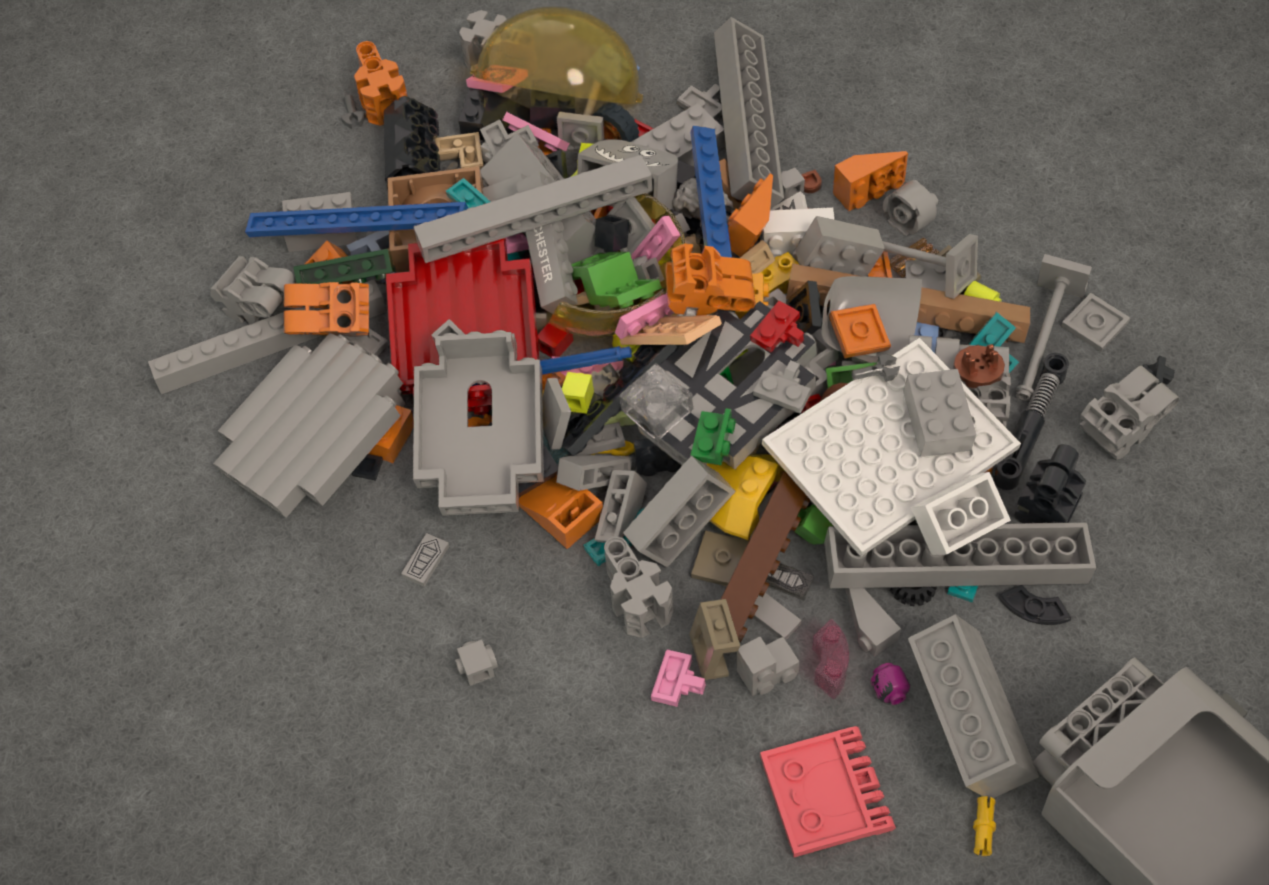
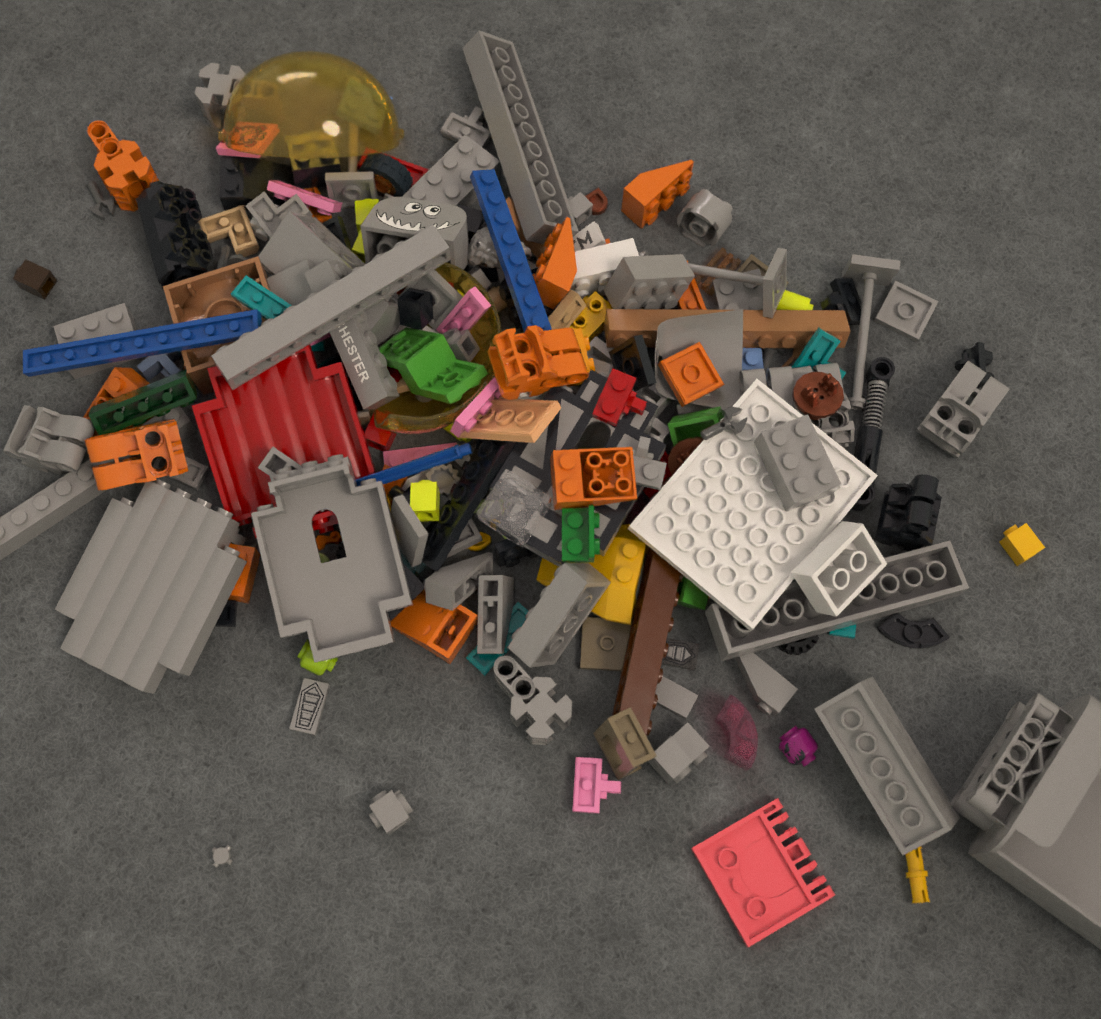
camera: 20 degrees left, 15 degrees up
(276, 164) = (34, 279): none -> dark brown brick
(309, 670) = (221, 855): none -> light grey piece
(440, 523) = (307, 661): none -> lime head
(736, 385) = (592, 477): none -> orange slope
(1034, 296) = (844, 298): none -> black hinge
(1165, 546) = (1021, 543): none -> yellow brick

